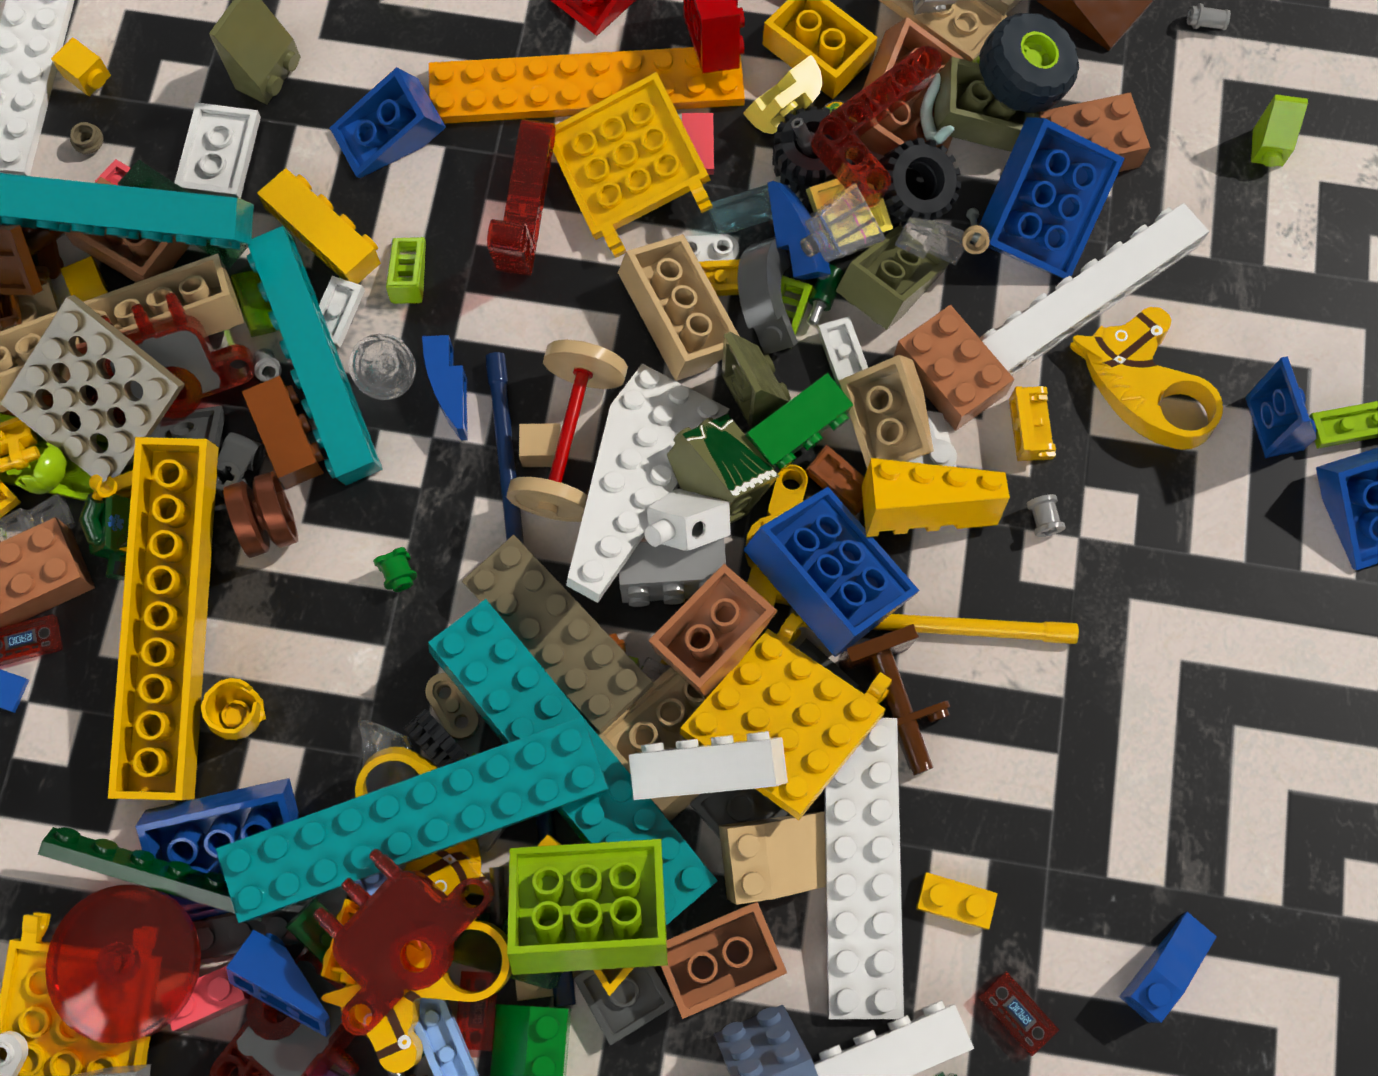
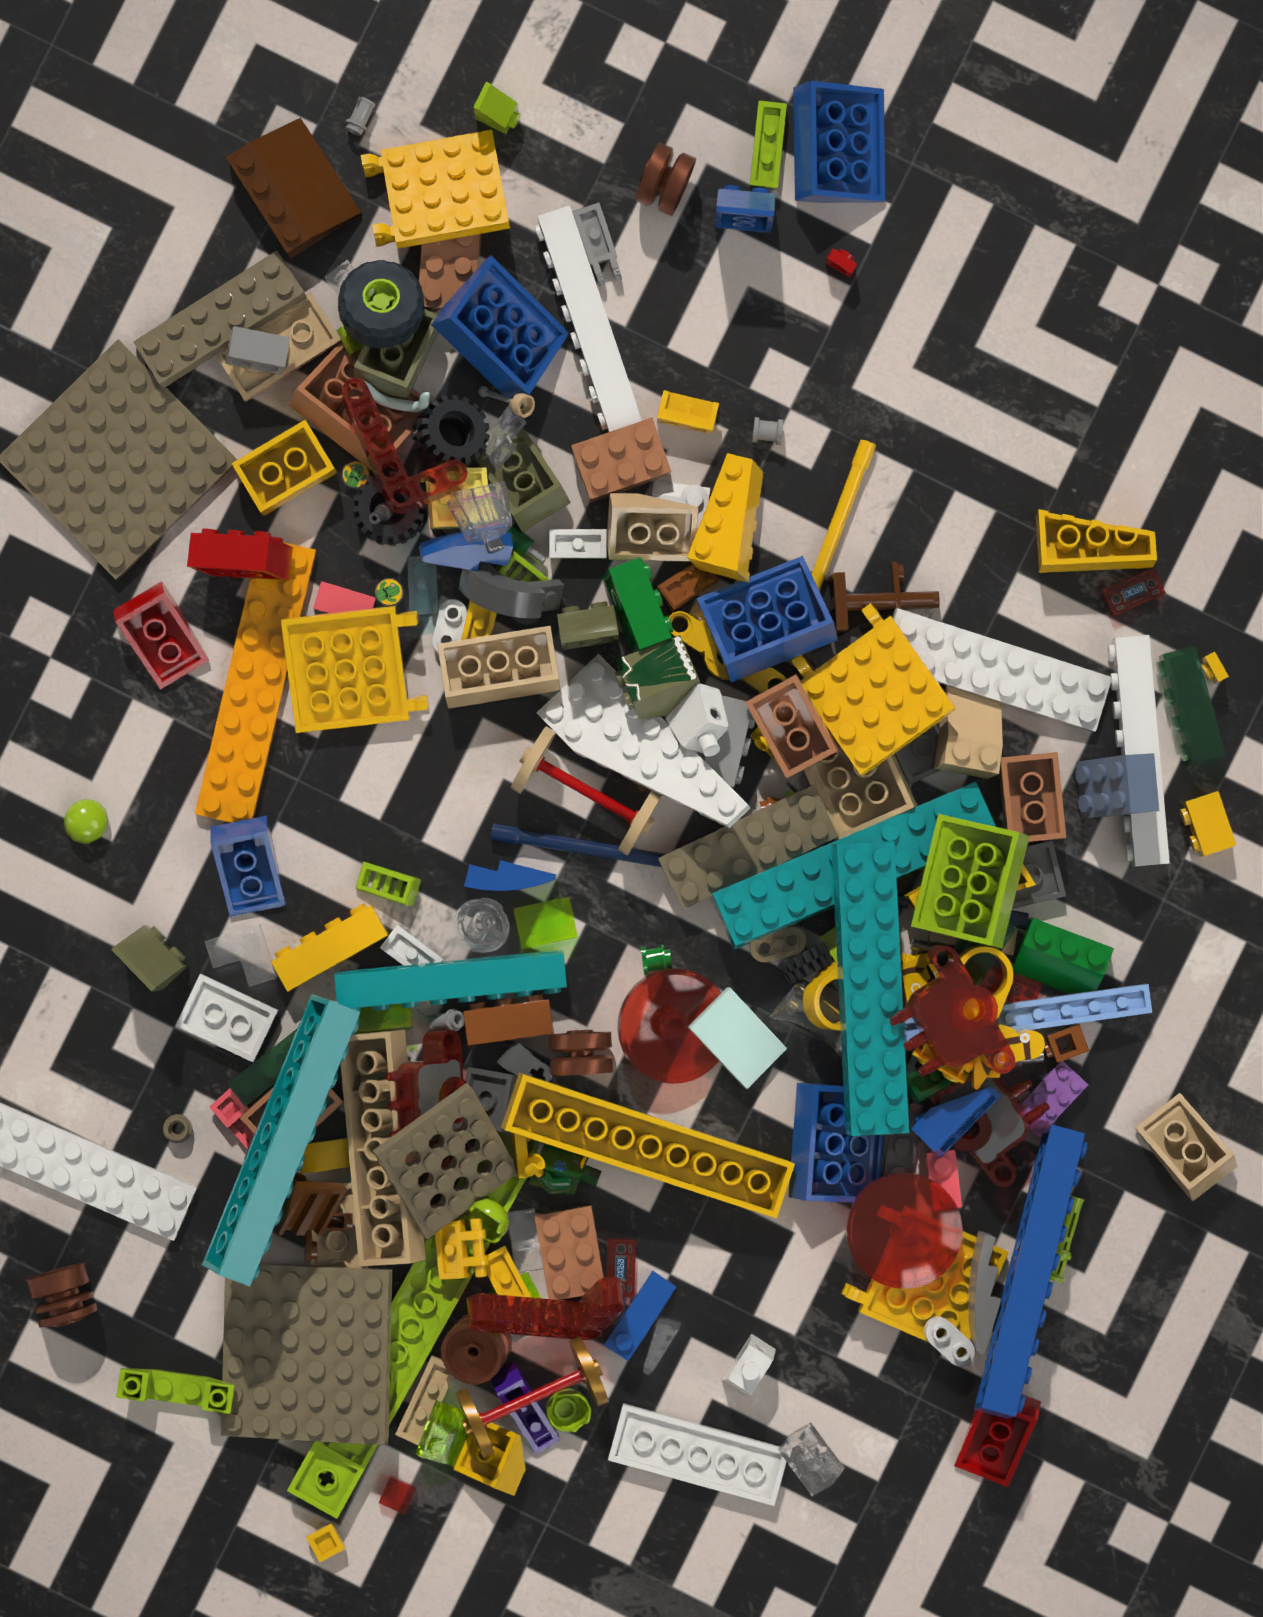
camera: 70 degrees left, 15 degrees up
(81, 66) = (107, 1117): yellow brick -> none
(137, 867) = (841, 1200): dark green plate -> none
(232, 709) = (732, 1112): yellow helmet -> none
(299, 146) = (250, 948): none -> clear plate
(320, 611) = (656, 1025): none -> clear red dish
(325, 690) = (737, 1037): none -> light aqua tile
(407, 440) = (545, 922): none -> clear neon green plate
(515, 239) = (360, 766): clear red beam -> none
(538, 444) = (584, 815): tan brick -> none
(708, 768) = (899, 763): white brick -> none
(724, 182) = (389, 592): none -> tile
(792, 92) = (333, 519): light yellow brick -> none
(956, 901) = (1040, 608): yellow plate -> none
(1057, 938) = (1088, 545): none -> yellow wedge
(1134, 385) = (667, 321): yellow animal -> none
(1168, 101) = (440, 189): none -> yellow plate
(1169, 970) = (1136, 469): blue slope -> none
(1180, 276) = (596, 240): none -> light grey hinge
(1269, 539) = (842, 262): none -> red plate
(1281, 318) = (663, 178): none -> copper wheel

